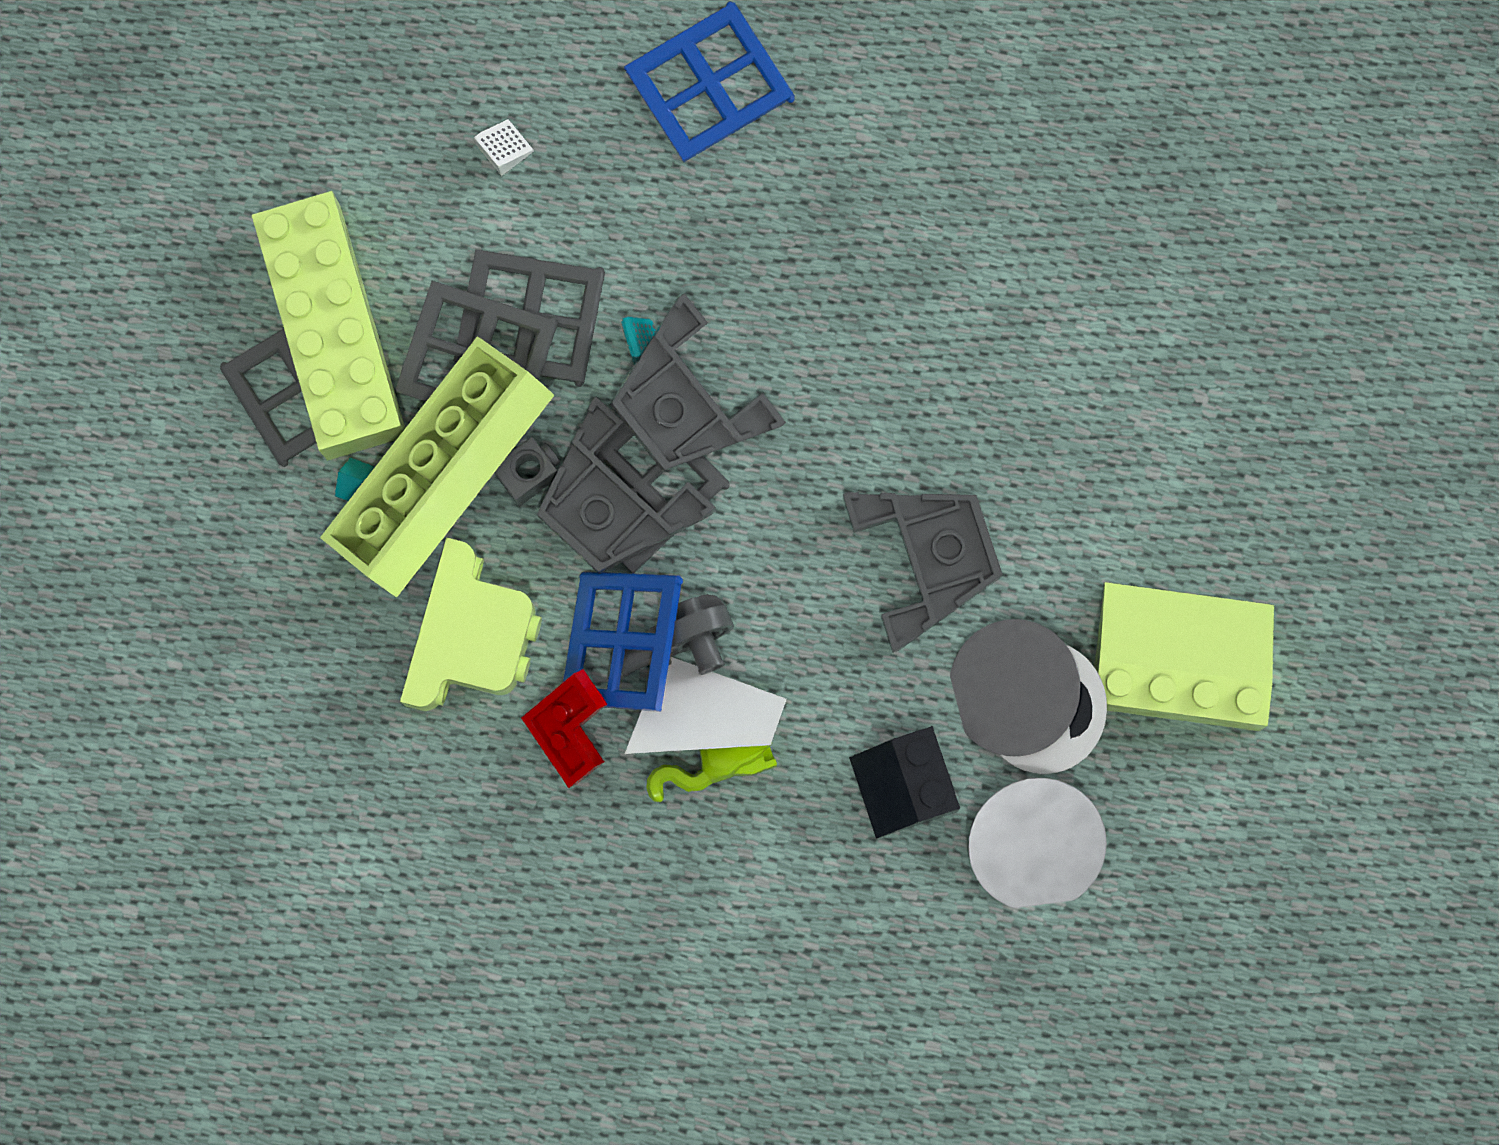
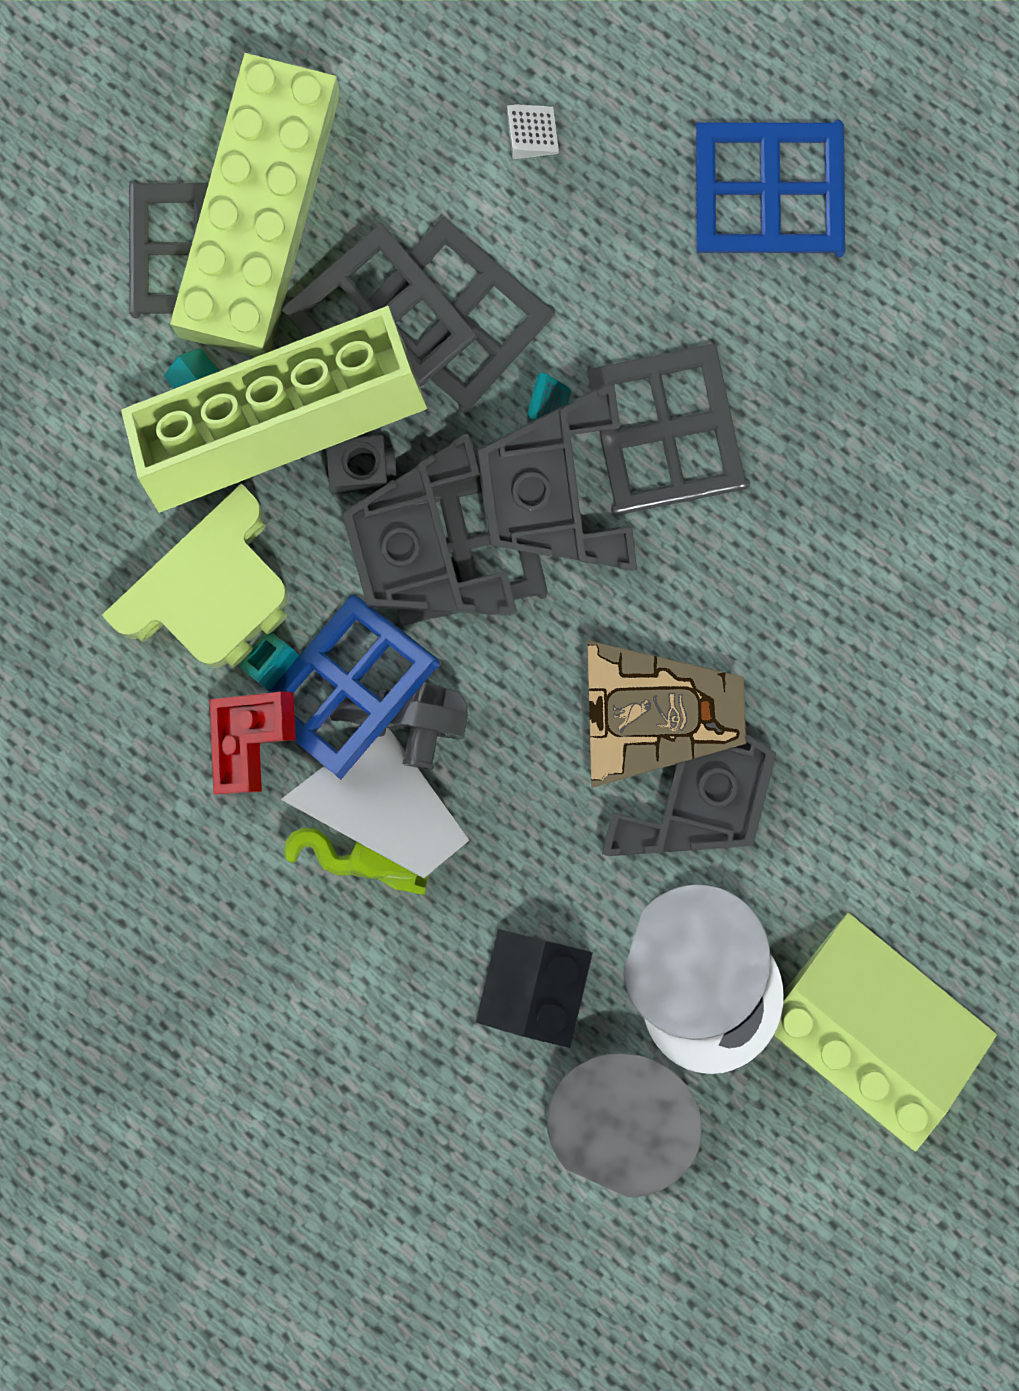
camera: 25 degrees right, 5 degrees up
(548, 661) = (268, 660): none -> teal slope
(744, 305) = (668, 429): none -> dark grey window
(868, 519) = (657, 712): none -> sticker

